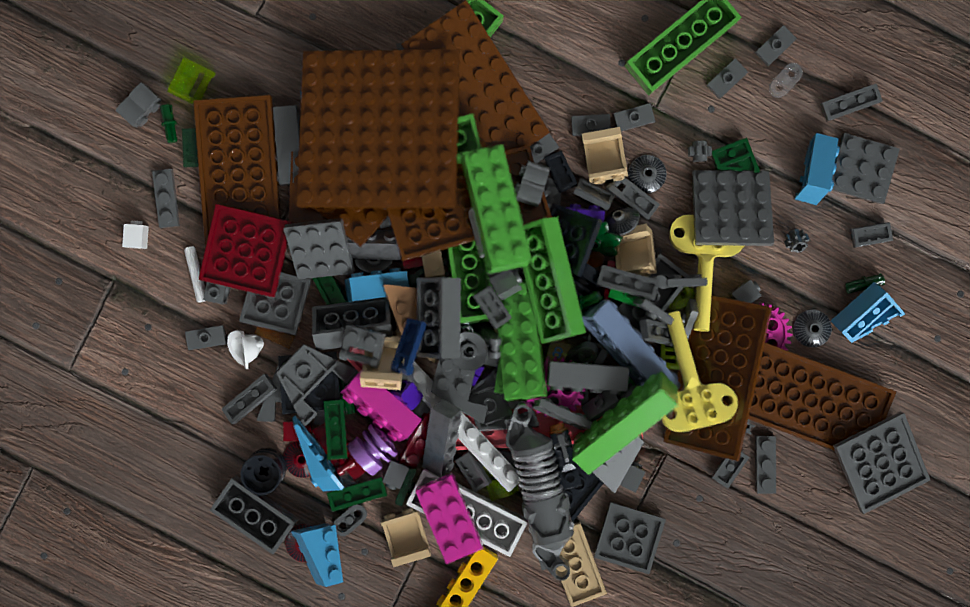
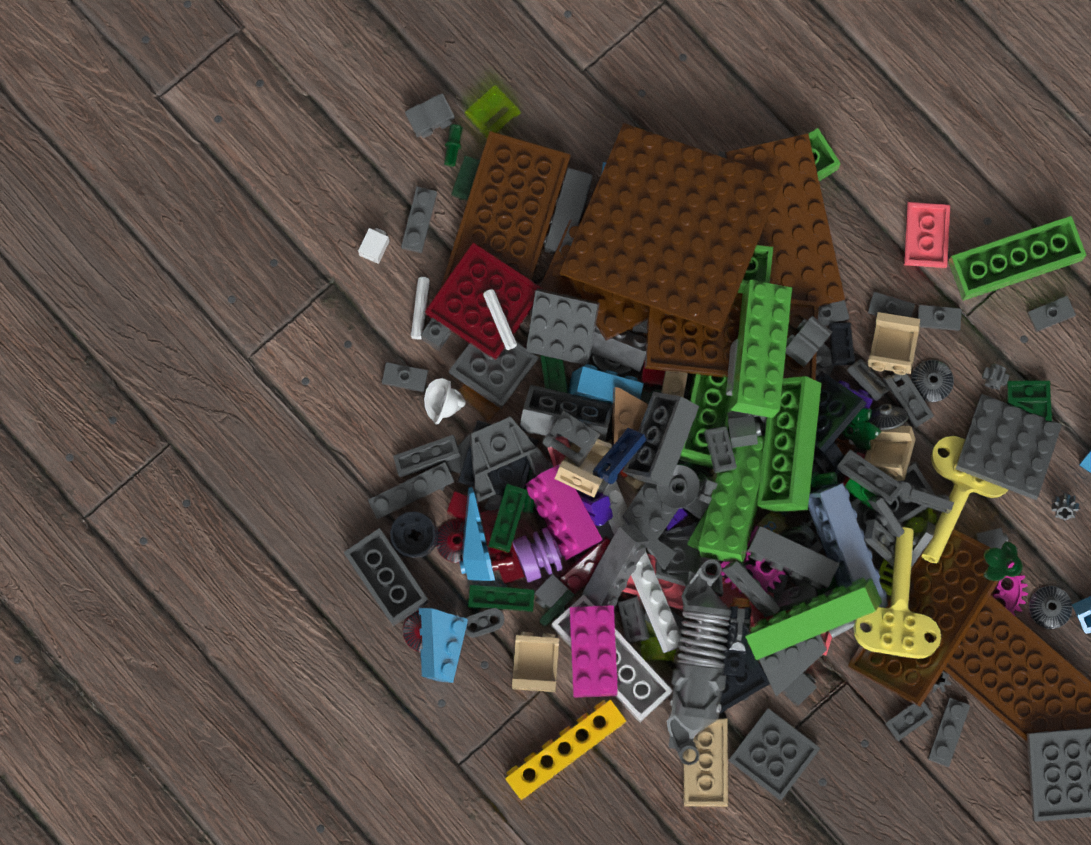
camera: 15 degrees right, 10 degrees down
(247, 432) = (411, 490): none -> dark grey plate
(263, 262) = (500, 319): none -> white axle
(598, 49) = (927, 235): none -> coral tile
(763, 312) = (1000, 560): none -> dark green plate

